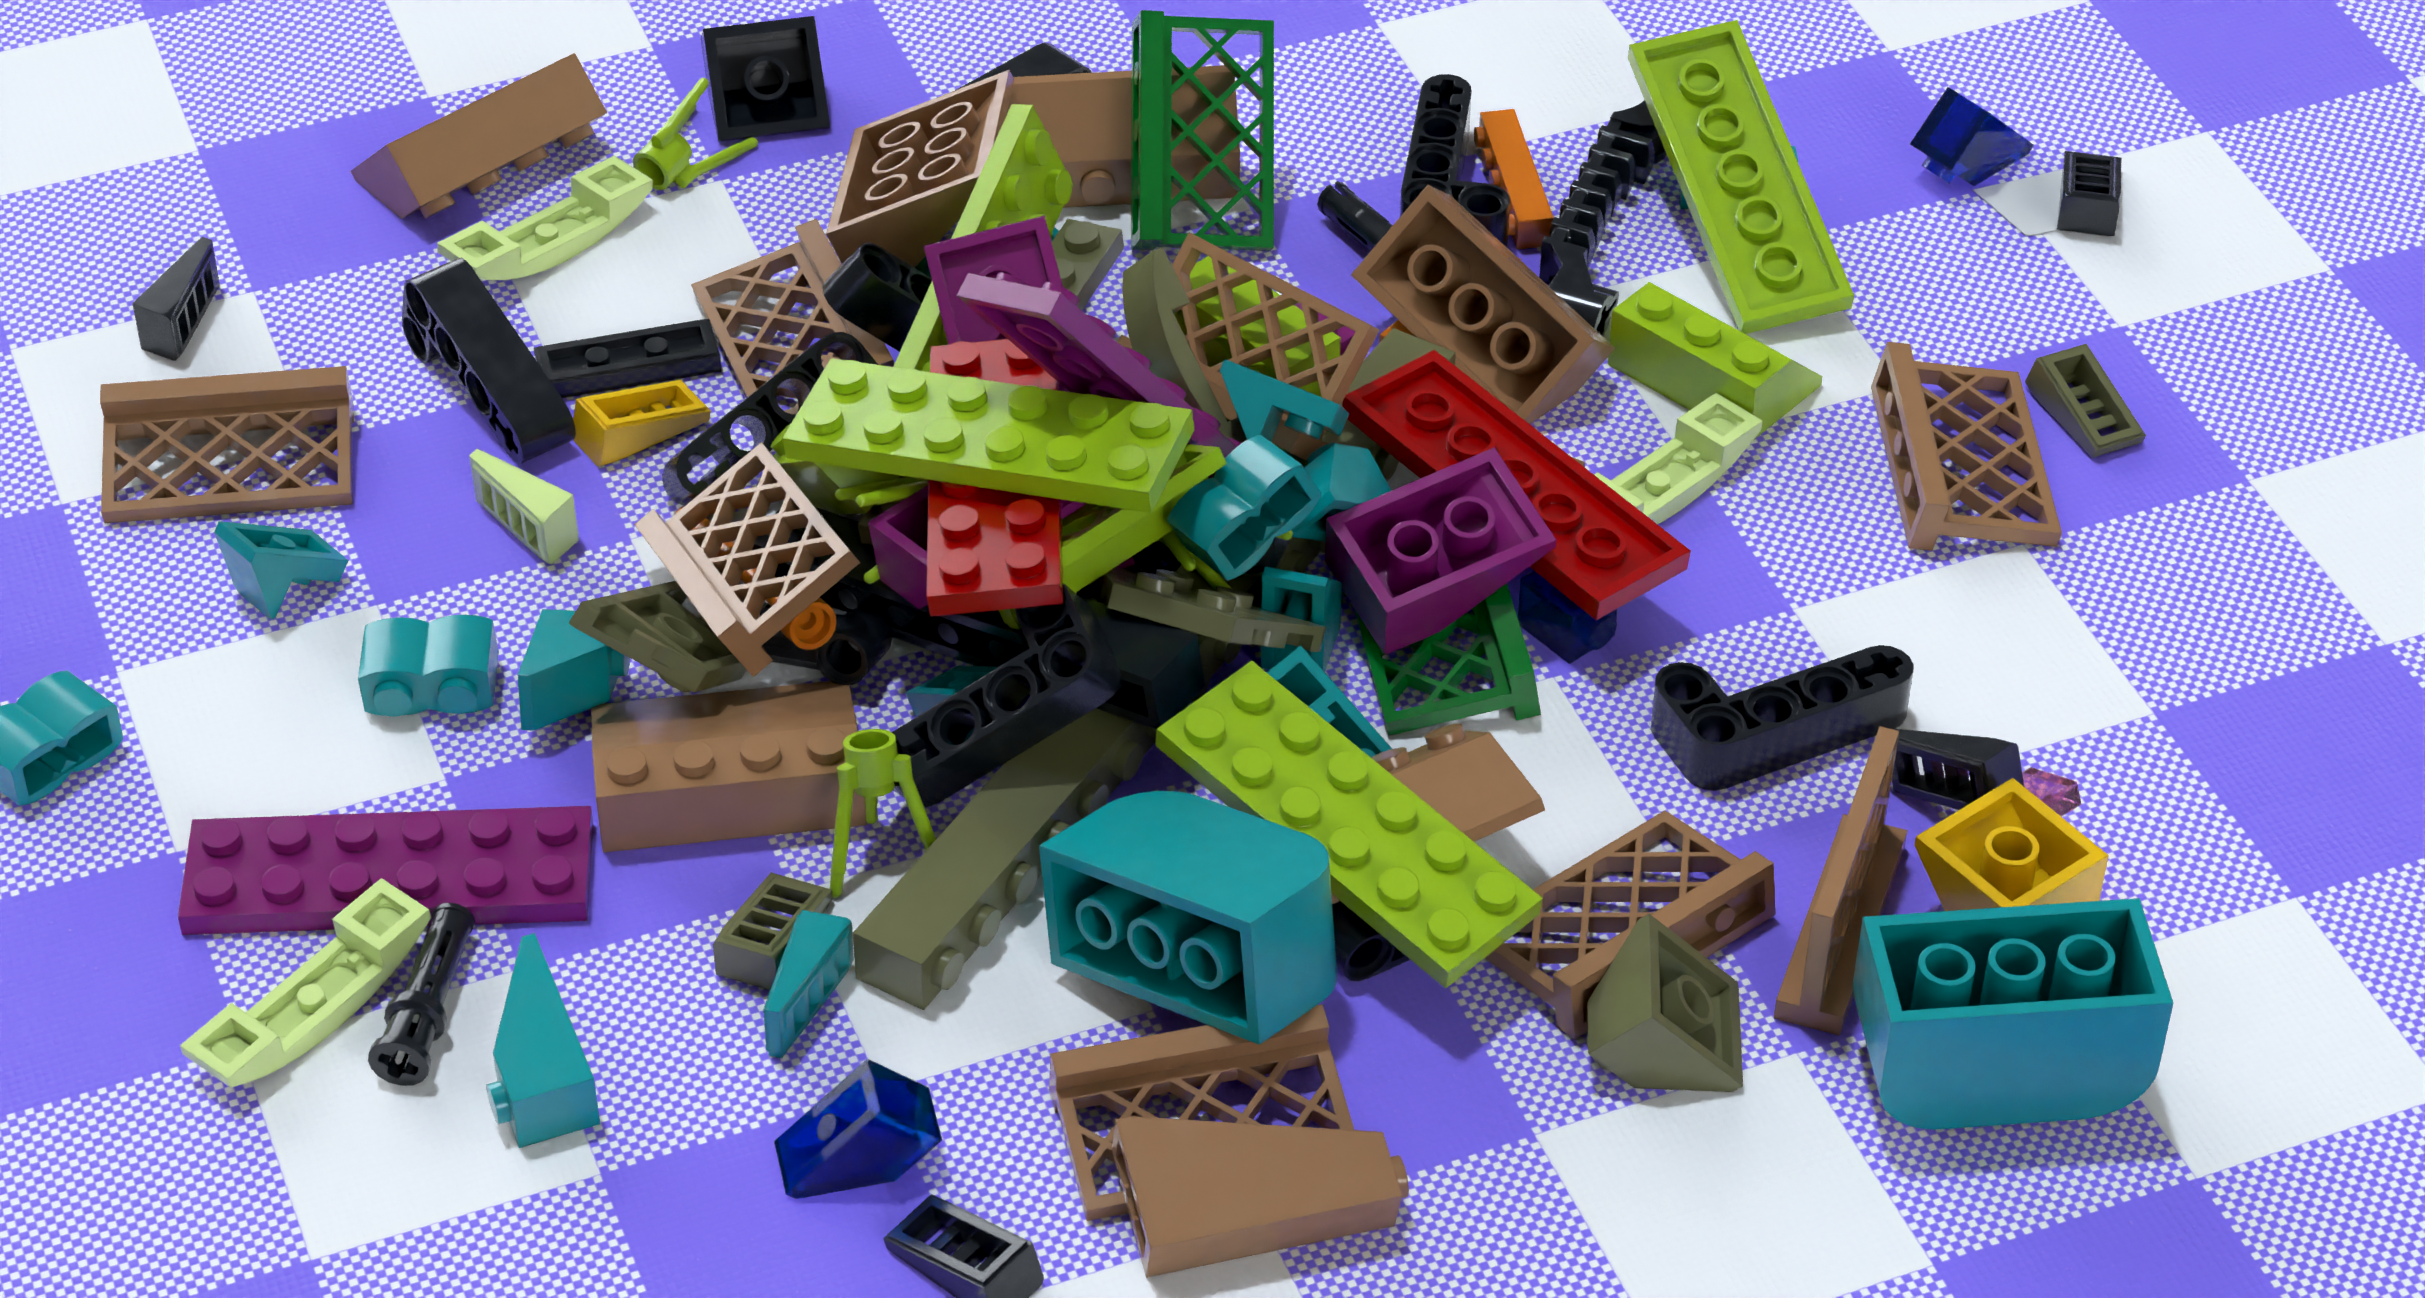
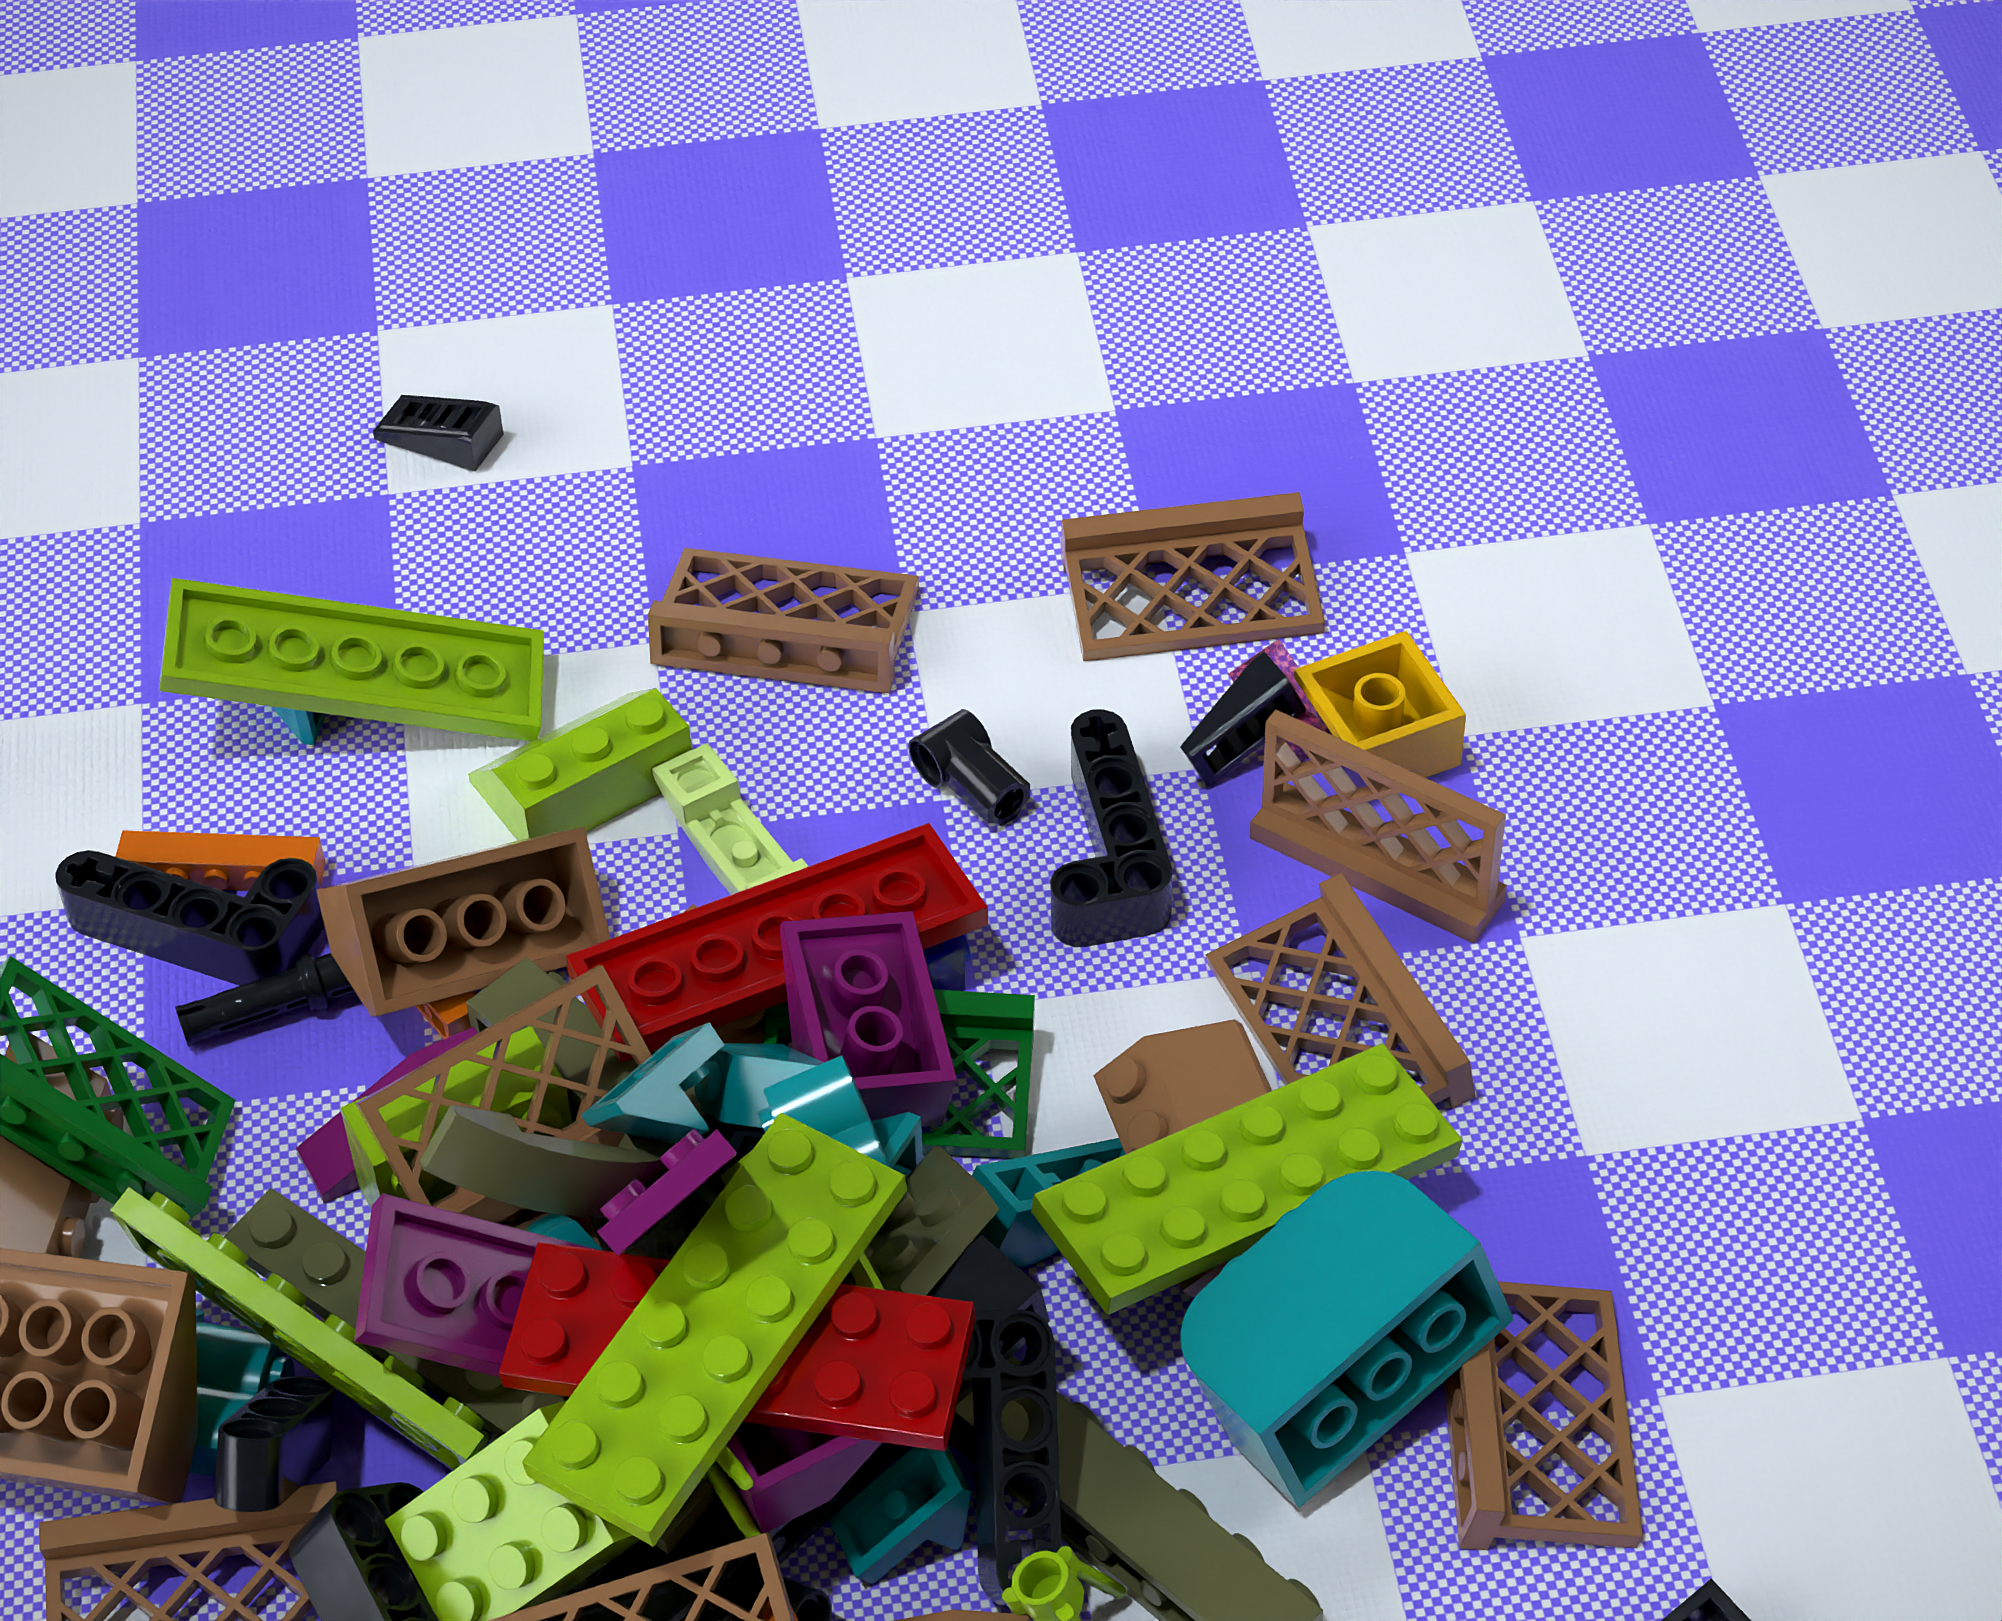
camera: 75 degrees left, 5 degrees up
(1249, 1189) = (1663, 1388): medium nougat slope -> none
(1620, 158) = (256, 781): black piece -> none
(1666, 1016) = (1492, 1013): olive slope -> none
(1827, 598) = (962, 757): none -> black piece
(1967, 141) = (344, 491): clear blue slope -> none
(2011, 1012) = (1589, 737): teal brick -> none
(2027, 202) = (423, 482): white sticker -> none
(2079, 366) = (724, 515): olive slope -> none
(2204, 706) = (1183, 539): none -> medium nougat fence

